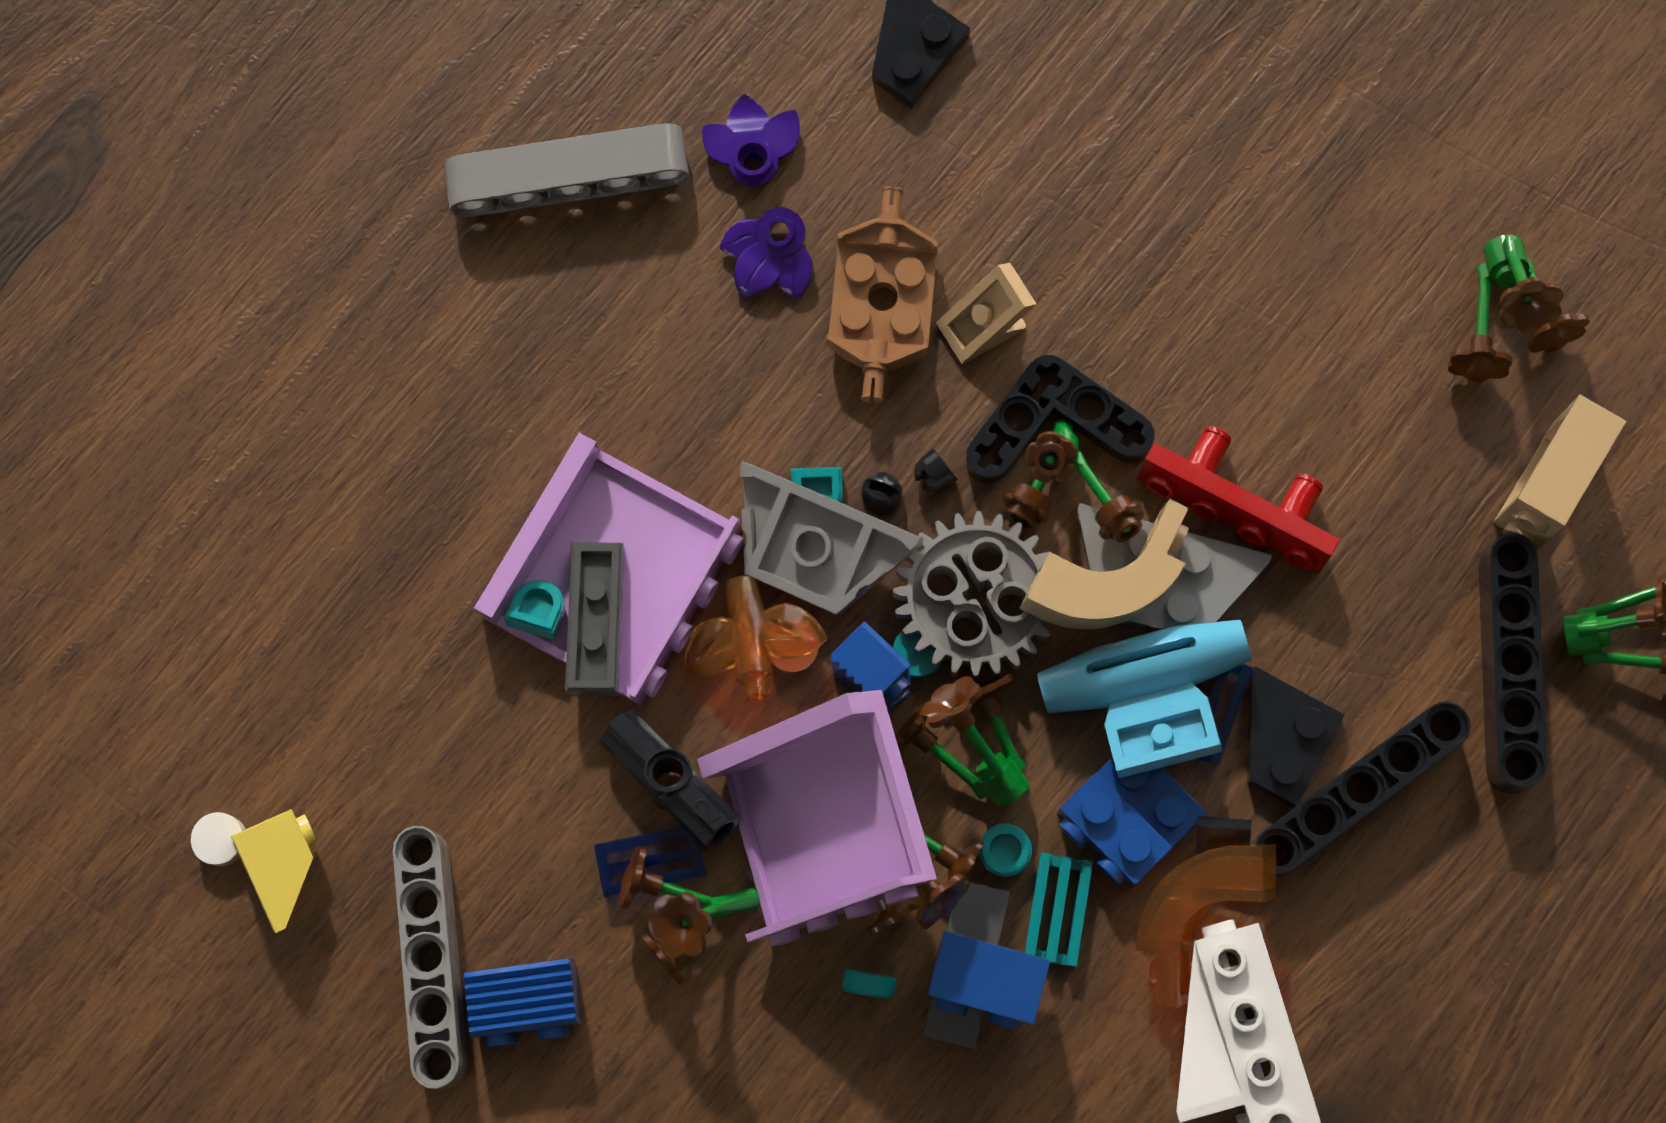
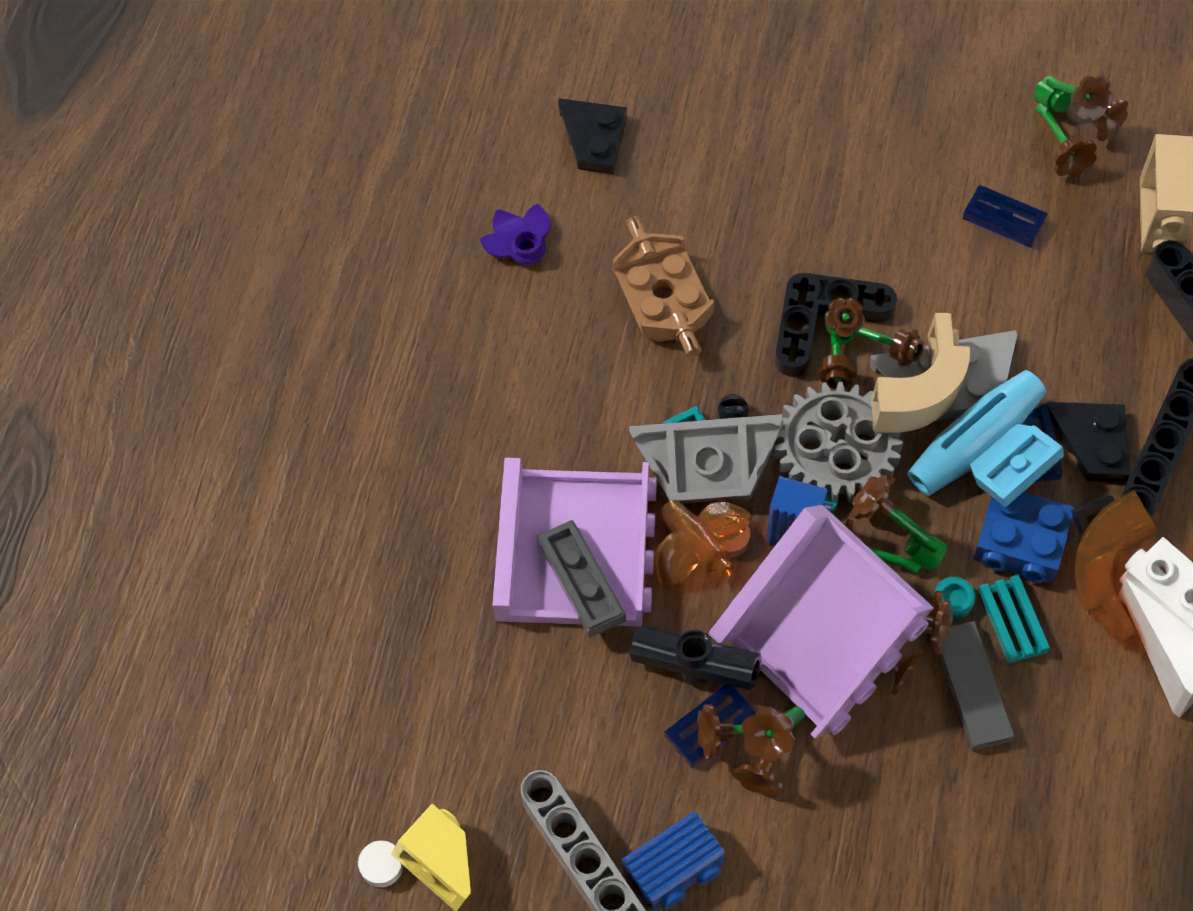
camera: 30 degrees left, 15 degrees down
(537, 609) = (535, 591): teal tile -> none
(566, 170) = (399, 305): light grey beam -> none
(767, 261) = (570, 301): dark purple plate -> none
(869, 983) = (915, 727): teal tile -> none
(933, 466) = (762, 378): black hinge -> none
(987, 314) = (741, 266): tan slope -> none
(988, 979) = (998, 676): blue brick -> none
(1254, 519) = (978, 311): red plate -> none
(1337, 407) = (1002, 219): none -> clear blue tile

